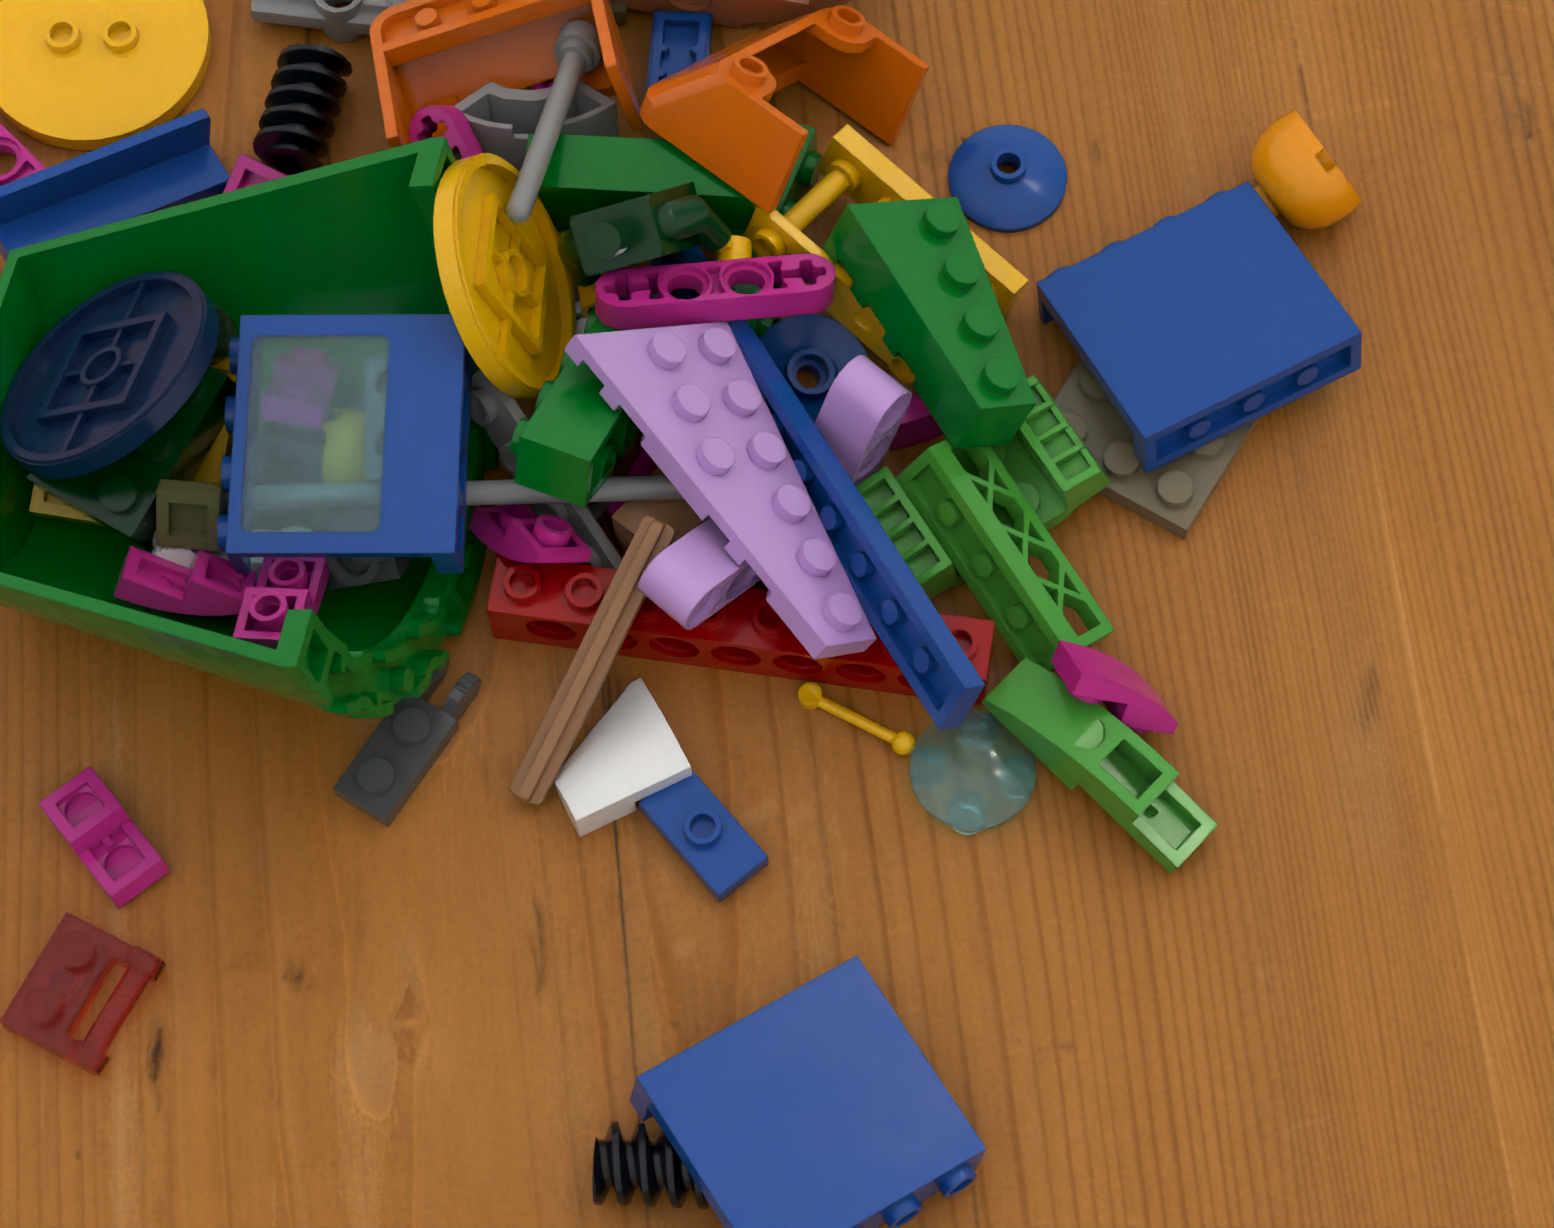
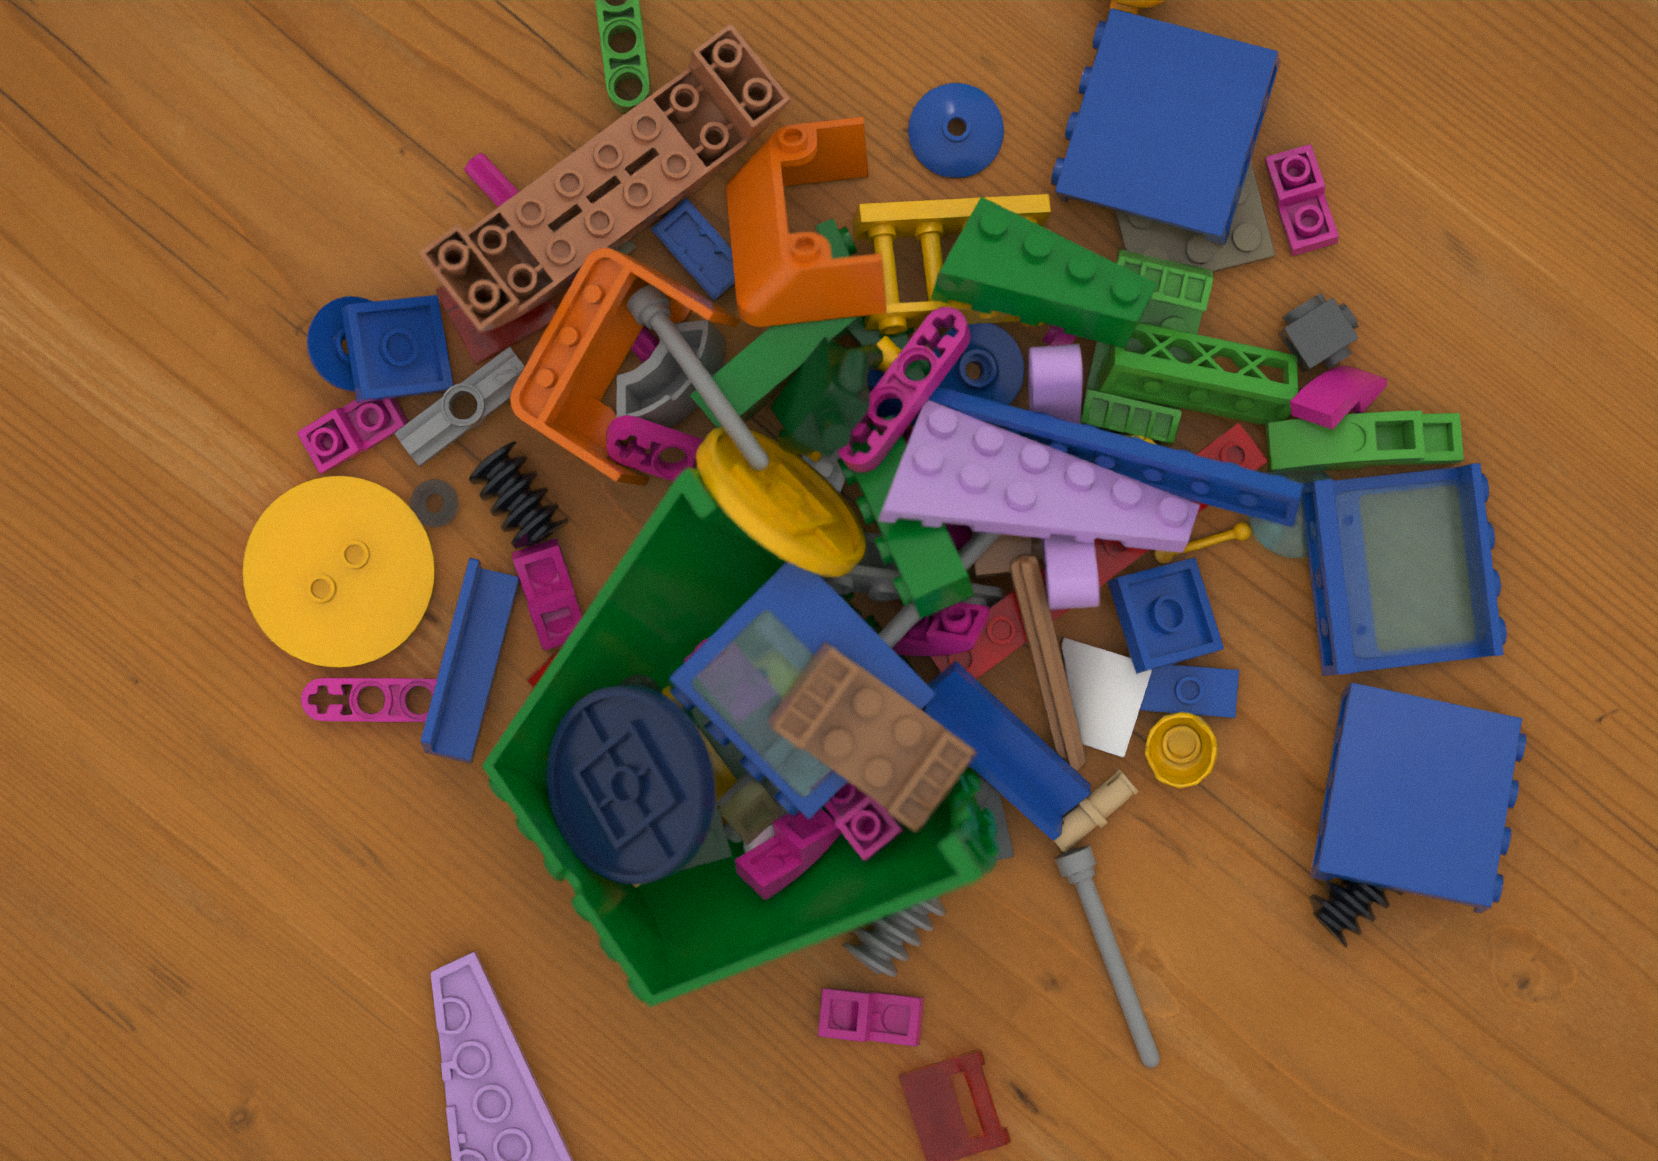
camera: 45 degrees left, 20 degrees up
(212, 772) = (890, 934): none -> light grey piece
(231, 46) = (421, 495): none -> clear smoke plate
(356, 519) = (872, 737): none -> medium nougat plate
(429, 890) = (1079, 869): none -> light grey piece
(471, 699) = (1007, 749): none -> blue panel
(498, 850) = (1095, 809): none -> tan pin
(637, 870) = (1181, 749): none -> yellow hair
(749, 735) = (1165, 615): none -> blue plate
(1012, 911) = (1402, 569): none -> clear light blue panel
(1157, 630) = (1319, 332): none -> dark grey brick
(1261, 509) = (1301, 200): none -> dark pink slope

